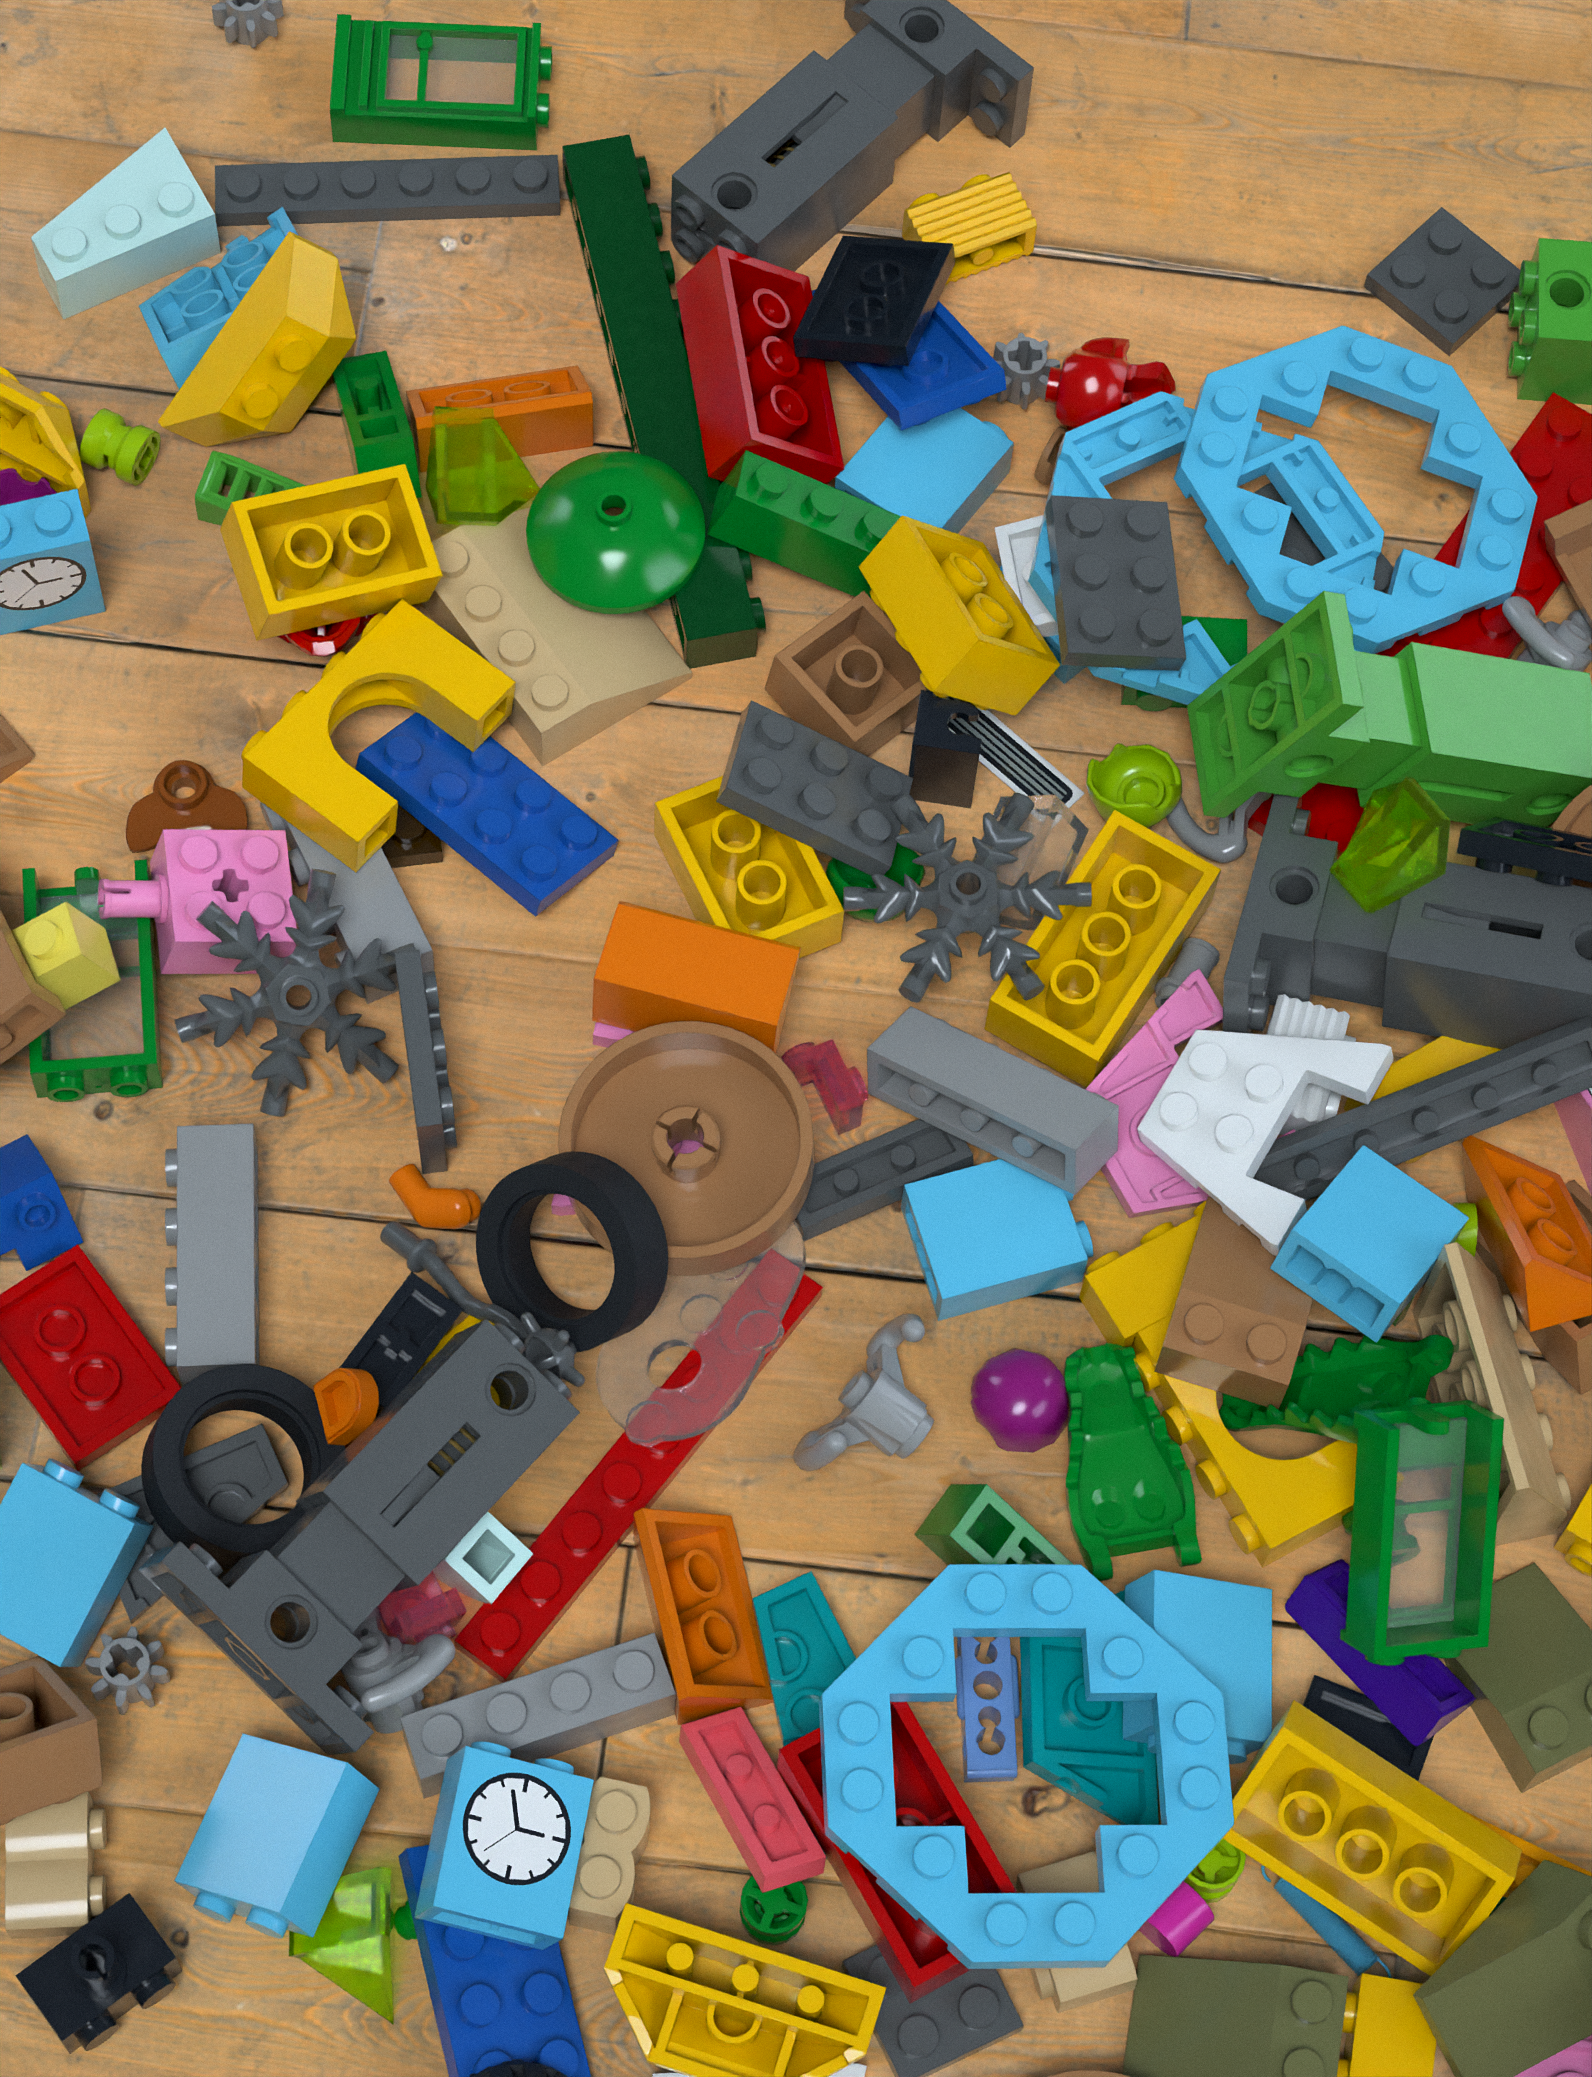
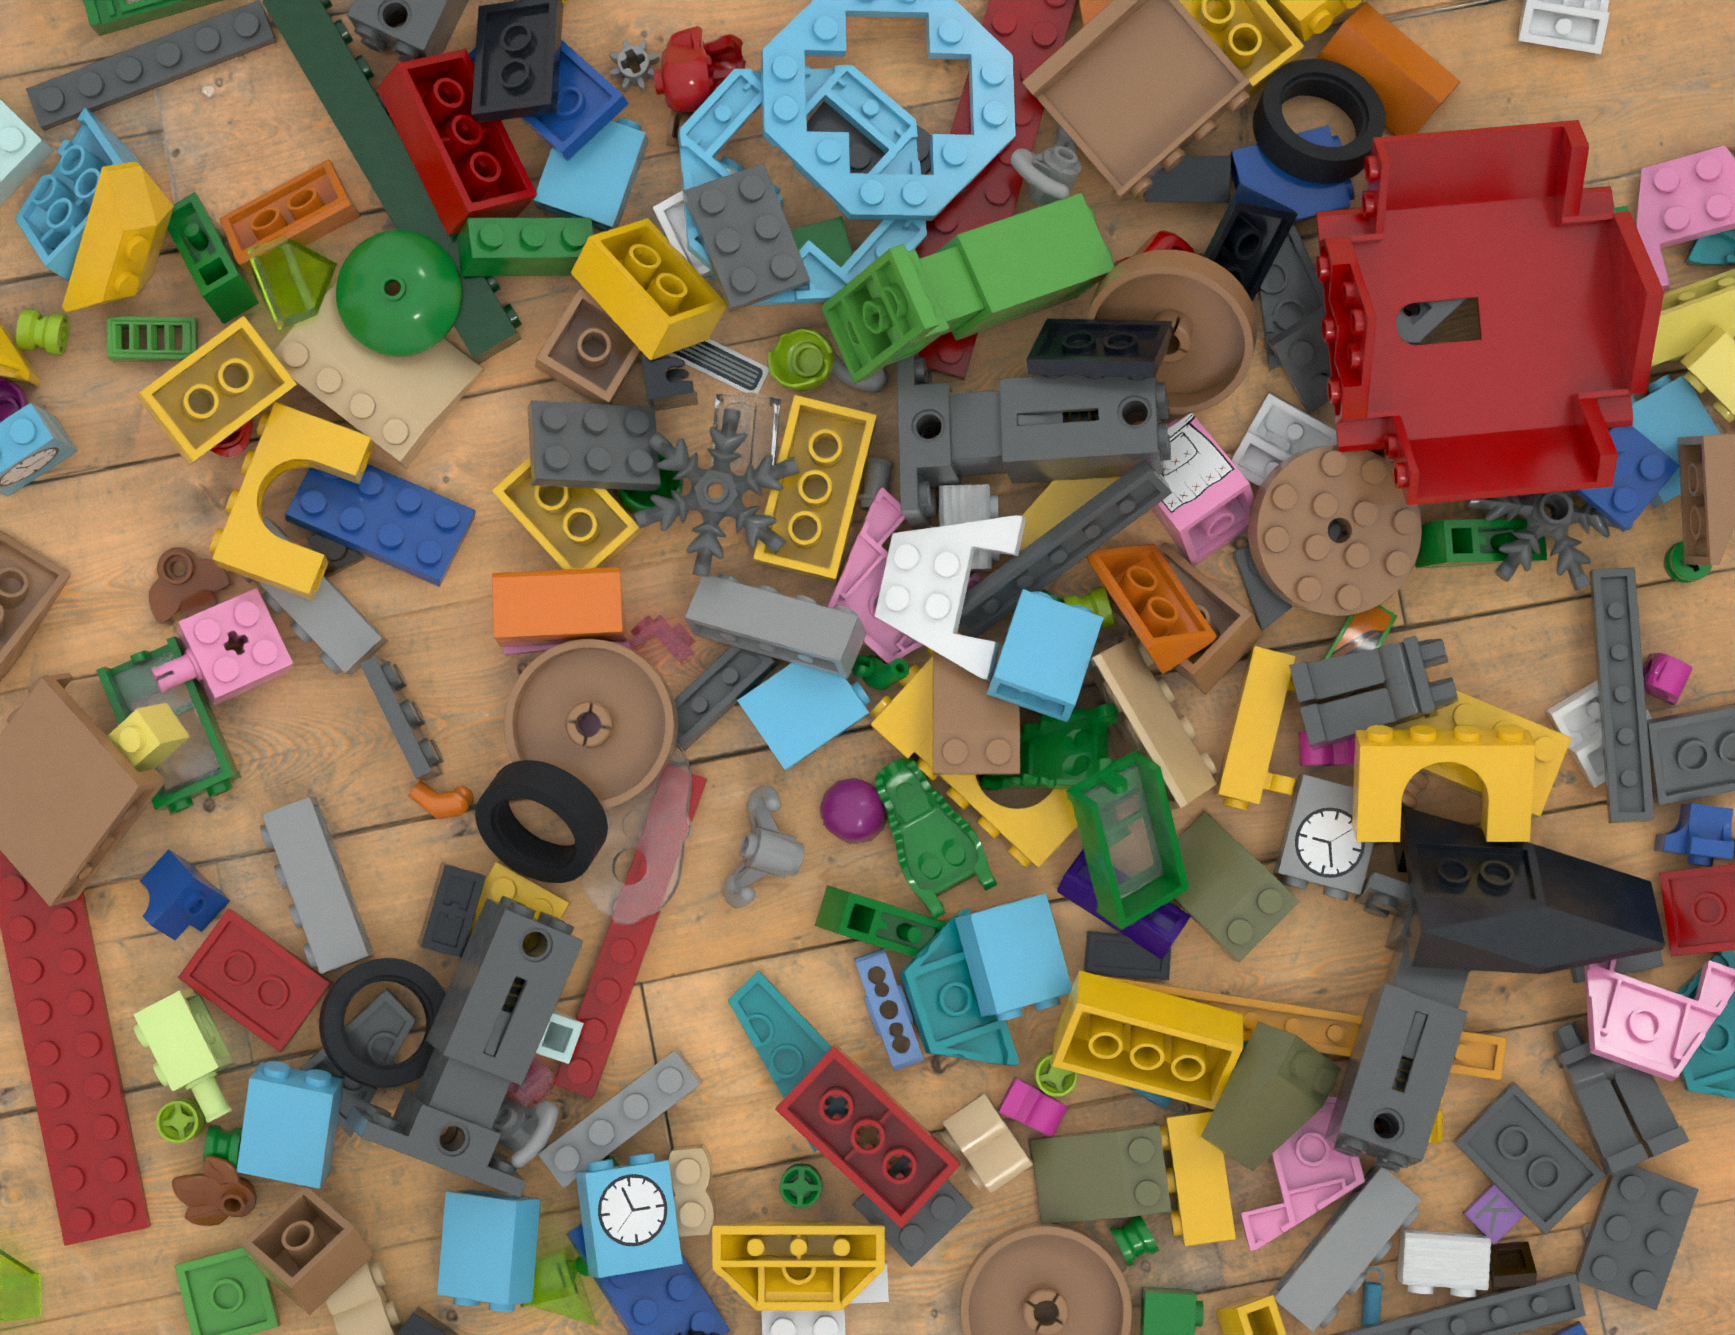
camera: 10 degrees left, 20 degrees up
(136, 1655) = (348, 1171): light grey gear -> none
(278, 976) = (305, 699): dark grey piece -> none
(346, 1403) = (435, 967): orange tile -> none
(544, 1346) = (547, 893): dark grey piece -> none
(701, 1611) = (699, 1017): orange slope -> none
(752, 1799) = (766, 1129): coral plate -> none
(928, 1864) = (1011, 1110): medium azure plate -> none
(1116, 1222) = (878, 673): none -> green arm
(1394, 846) = (983, 384): clear neon green slope -> none

